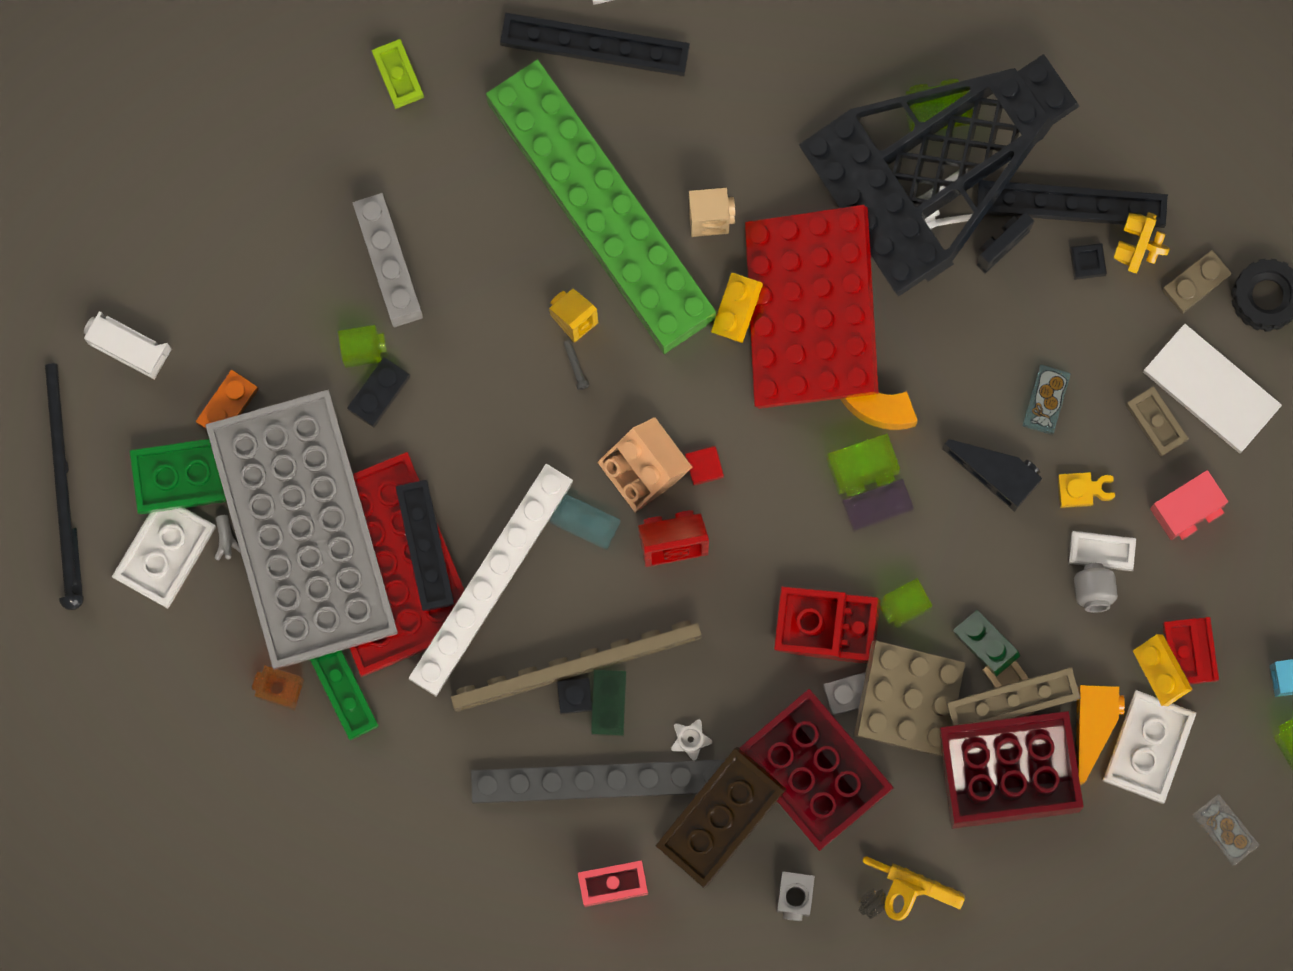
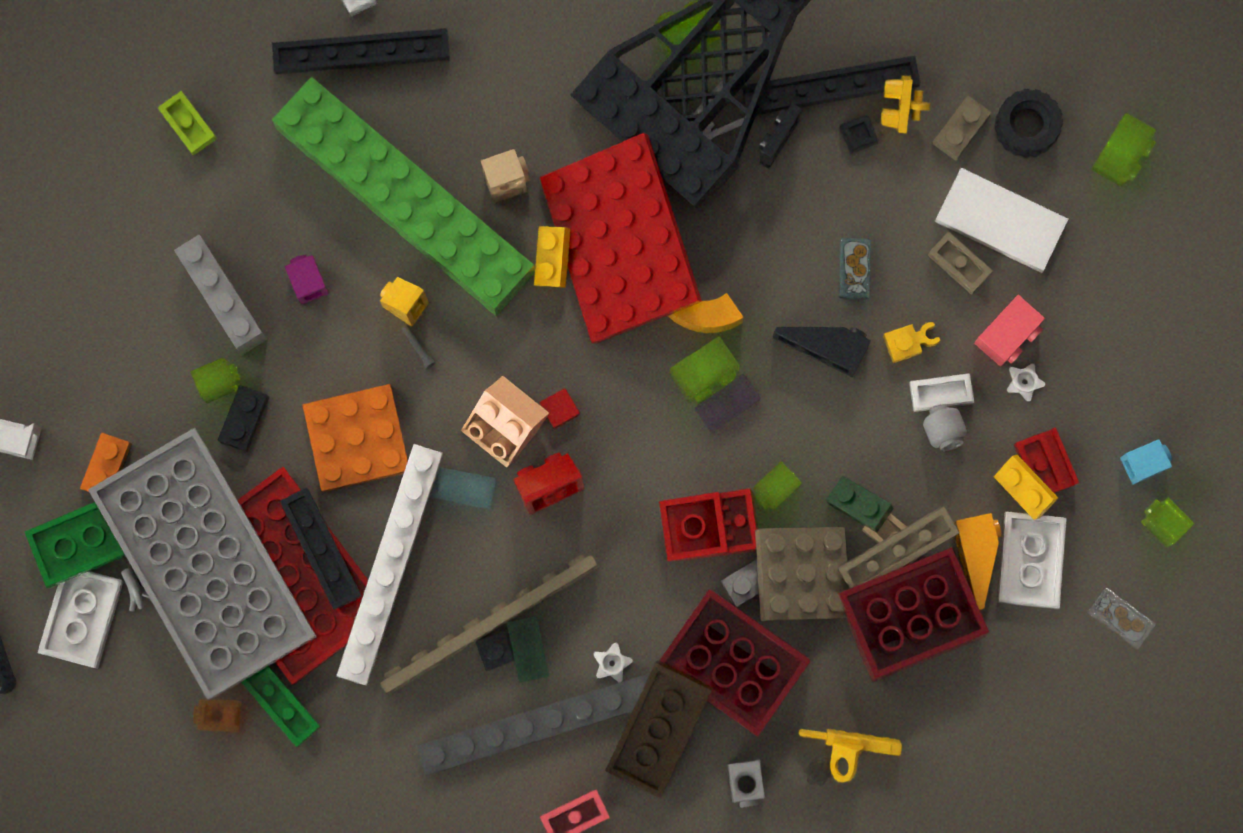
camera: 15 degrees left, 0 degrees up
(479, 265) = (306, 278): none -> magenta brick
(488, 442) = (356, 438): none -> orange plate
(1198, 555) = (1029, 374): none -> white plate

